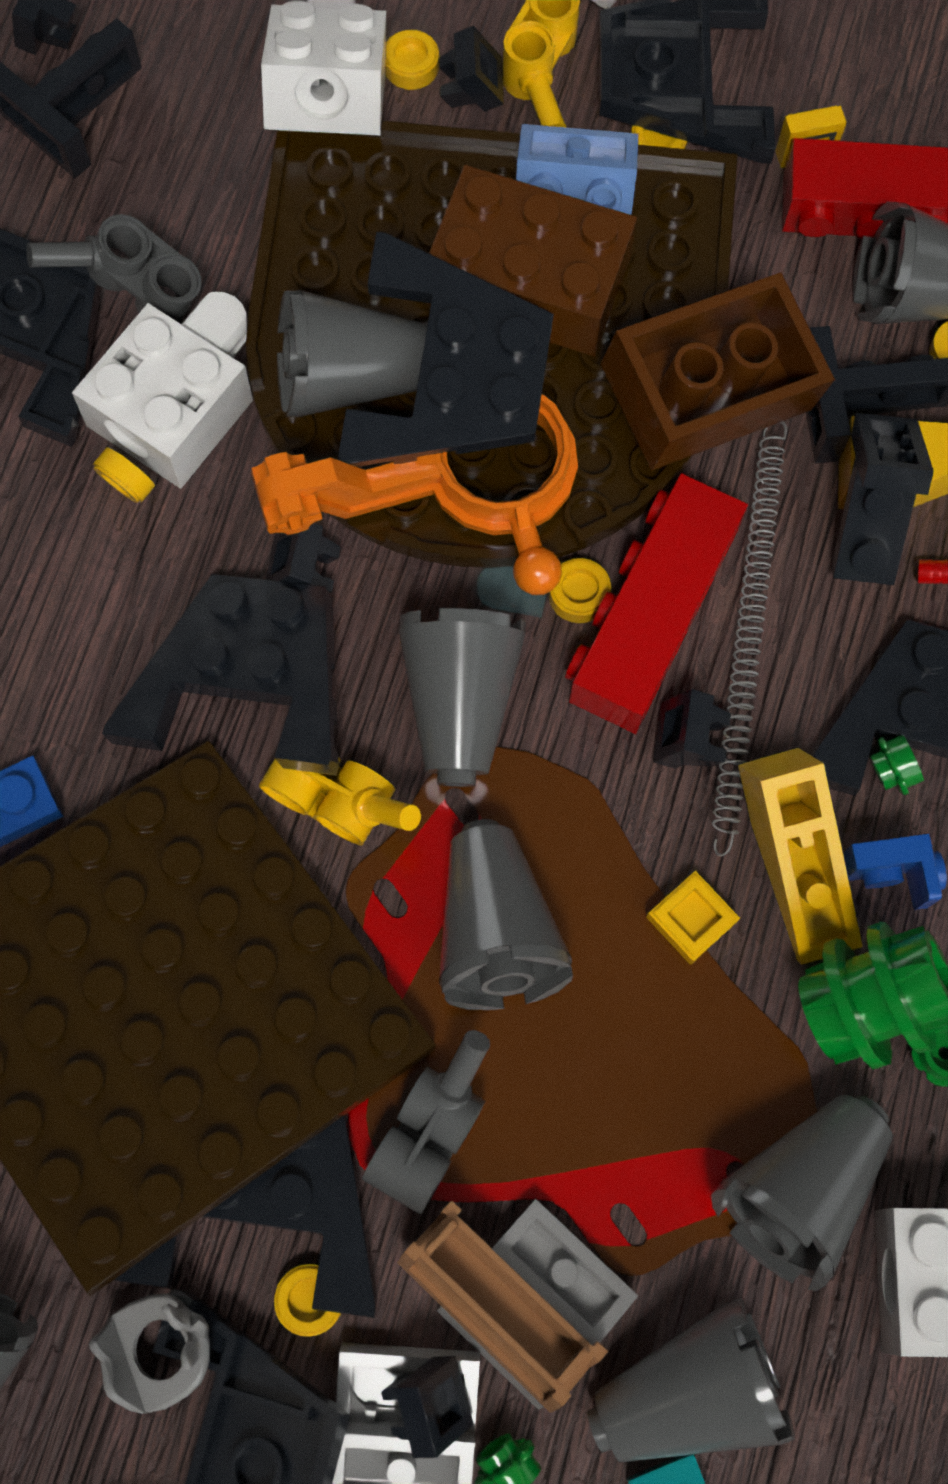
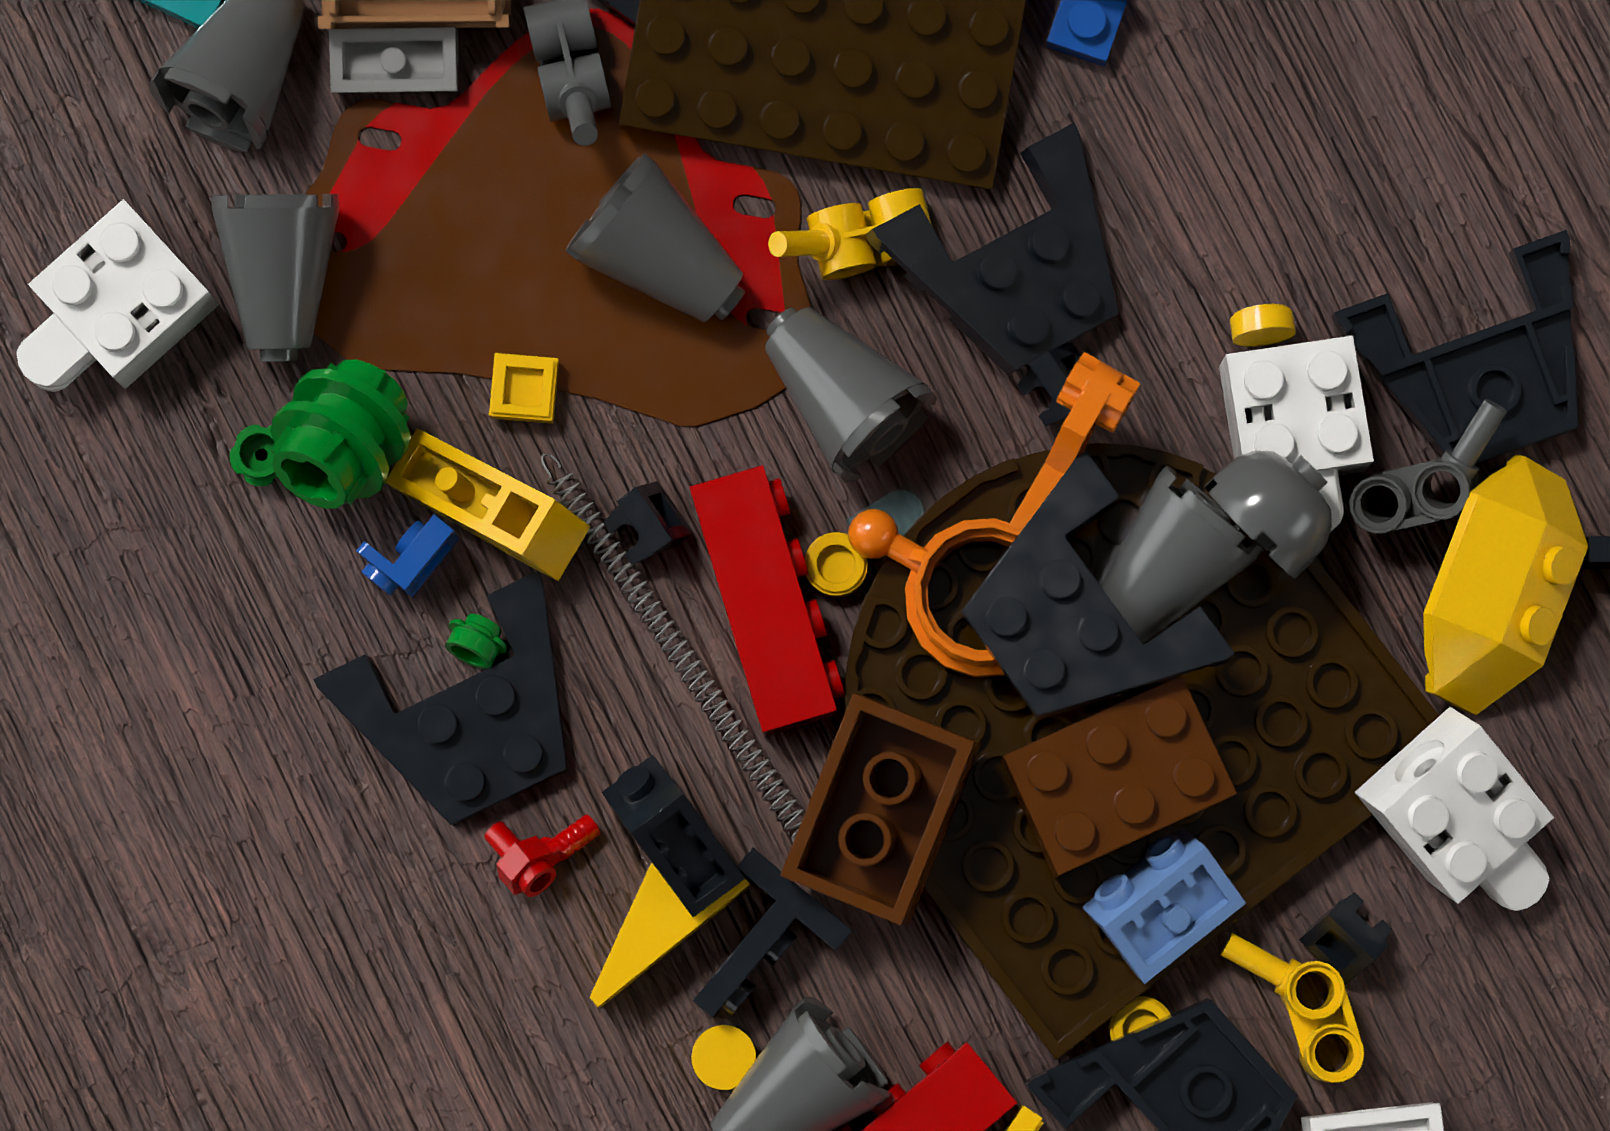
camera: 140 degrees right, 10 degrees up
(141, 163) = (1502, 585): none -> yellow wedge
(244, 314) = (1276, 505): none -> dark grey cylinder
(411, 59) = (1416, 910): yellow tile -> none

